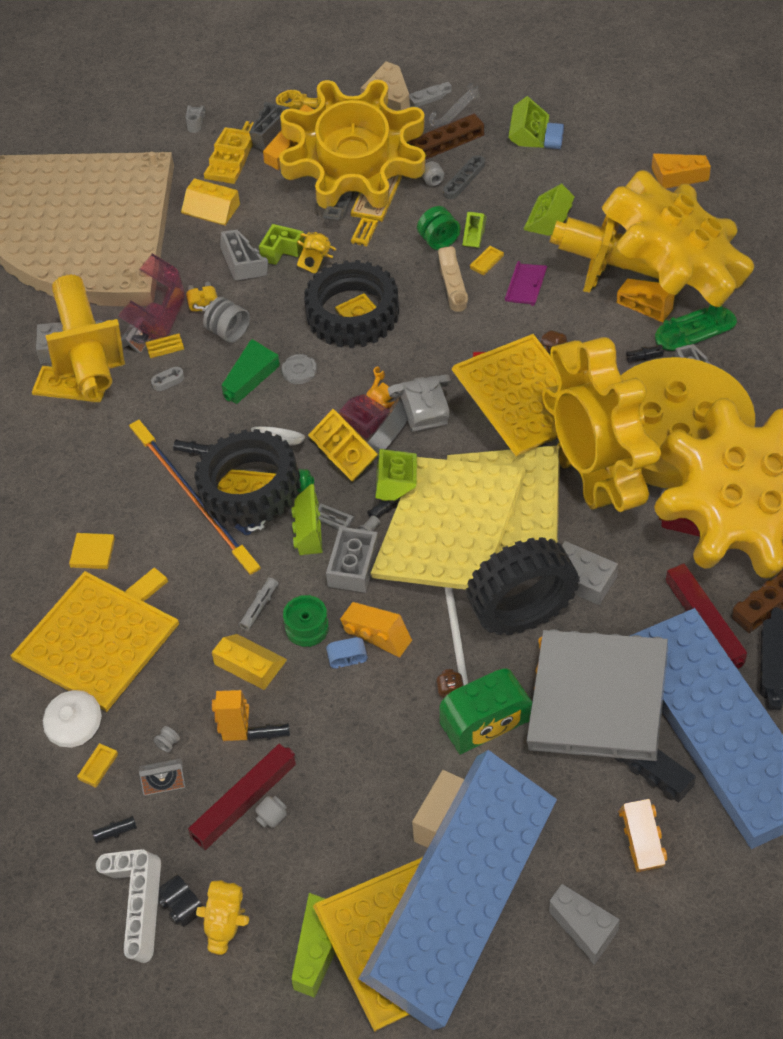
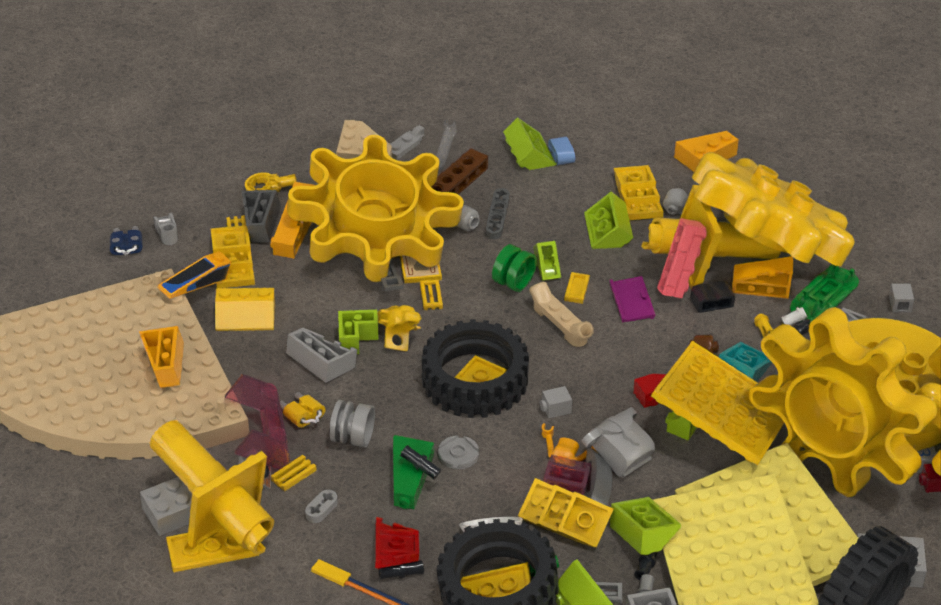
camera: 30 degrees left, 10 degrees down
(113, 221) = (165, 354): none -> light orange wedge
(157, 121) = (131, 242): none -> dark blue piece
(185, 163) = (202, 273): none -> slope
(197, 427) = (395, 544): none -> red wing
(254, 367) = (420, 462): none -> black pin
(400, 352) = (556, 402): none -> light grey brick
(575, 259) = (681, 258): none -> coral brick
(593, 301) = (712, 296): none -> black brick
(594, 189) = (639, 192): none -> yellow slope
(621, 339) = (762, 322): none -> yellow pin
(651, 340) = (795, 316): none -> white pin
(760, 351) = (901, 298): none -> light grey brick

